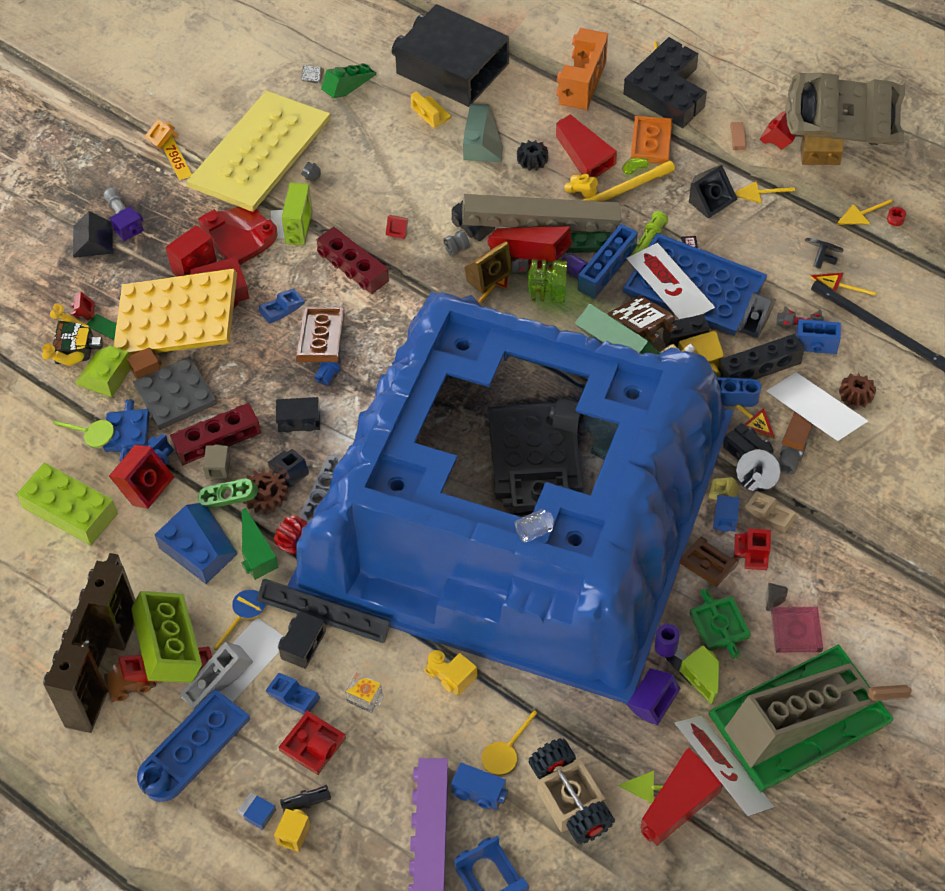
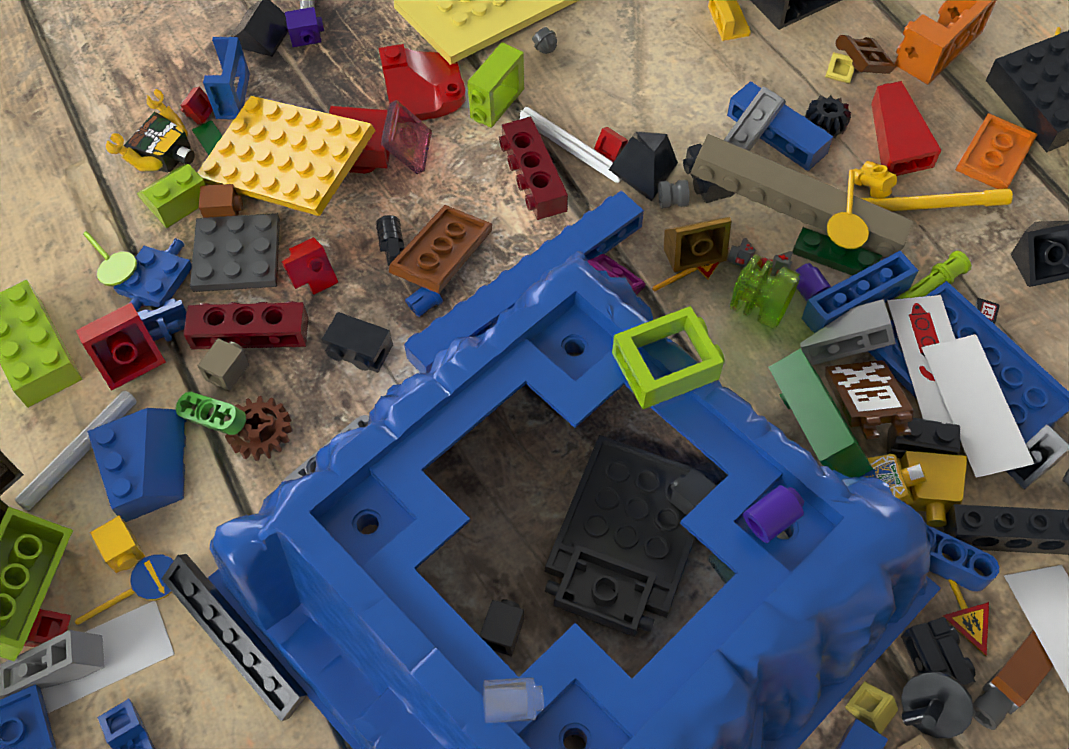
camera: 25 degrees right, 5 degrees up
(101, 286) = (220, 88): none -> blue panel
(147, 549) = (73, 452): none -> white axle
(190, 251) = (347, 84): red brick -> none
(215, 593) = (117, 544): none -> yellow brick
(237, 379) = (309, 266): none -> red brick
(254, 271) = (406, 137): none -> clear pink tile
(256, 552) = (202, 501): green slope -> none
(280, 342) = (390, 236): none -> black hinge
(281, 307) = (426, 192): blue slope -> none
(289, 533) = (247, 499): red gear -> none
(290, 466) = (302, 410): black brick -> none
(301, 639) = (181, 665): black brick -> none
(372, 236) = (571, 143): none -> white axle
(389, 336) = (592, 234): none -> blue brick
(426, 229) = (645, 162): none -> black slope
(481, 135) = (777, 64): sand green wedge -> none
(487, 173) = (755, 119): none -> light grey tile
(503, 172) = (788, 132): none -> blue brick
(515, 341) = (651, 391): none -> lime window
(524, 118) = (840, 68): none -> light yellow slope
(533, 242) = (771, 232): red slope -> none
(538, 104) = (866, 54): none -> reddish brown plate
(580, 222) = (847, 228): none -> yellow piece
(615, 285) = (852, 333): none -> light grey slope
(625, 382) = (774, 513): none -> dark purple brick
(633, 164) = (956, 176): clear neon green arm -> none
(708, 298) = (977, 405): none -> white sticker

